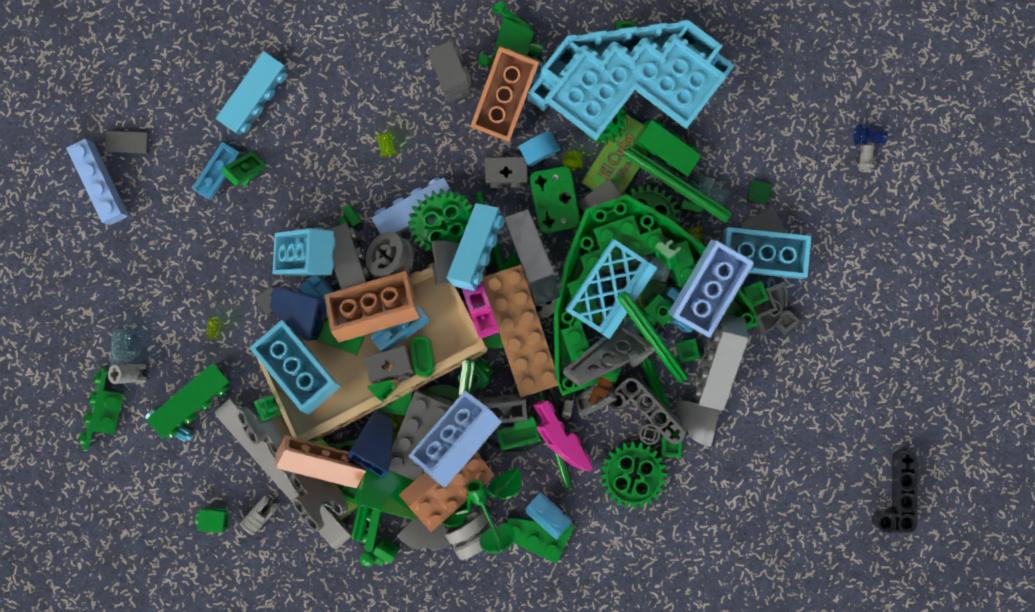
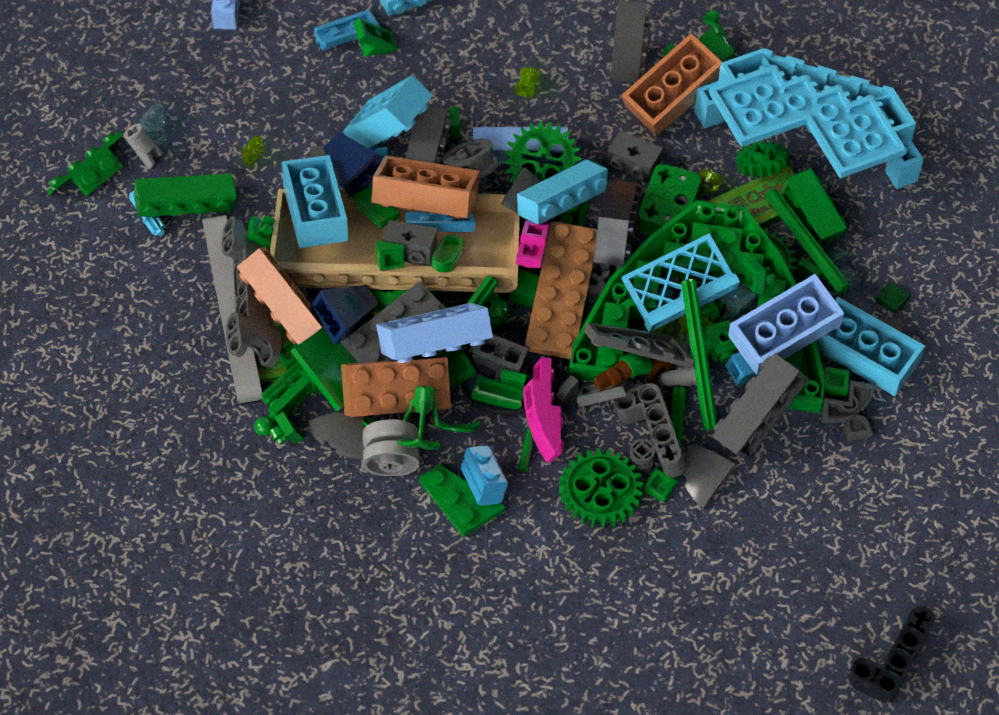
camera: 25 degrees right, 30 degrees down
(212, 519) = (131, 312): green brick -> none
(256, 518) = (173, 333): light grey hinge -> none
(539, 148) = (681, 142): dark azure brick -> none
(687, 350) = (725, 400): green tile -> none

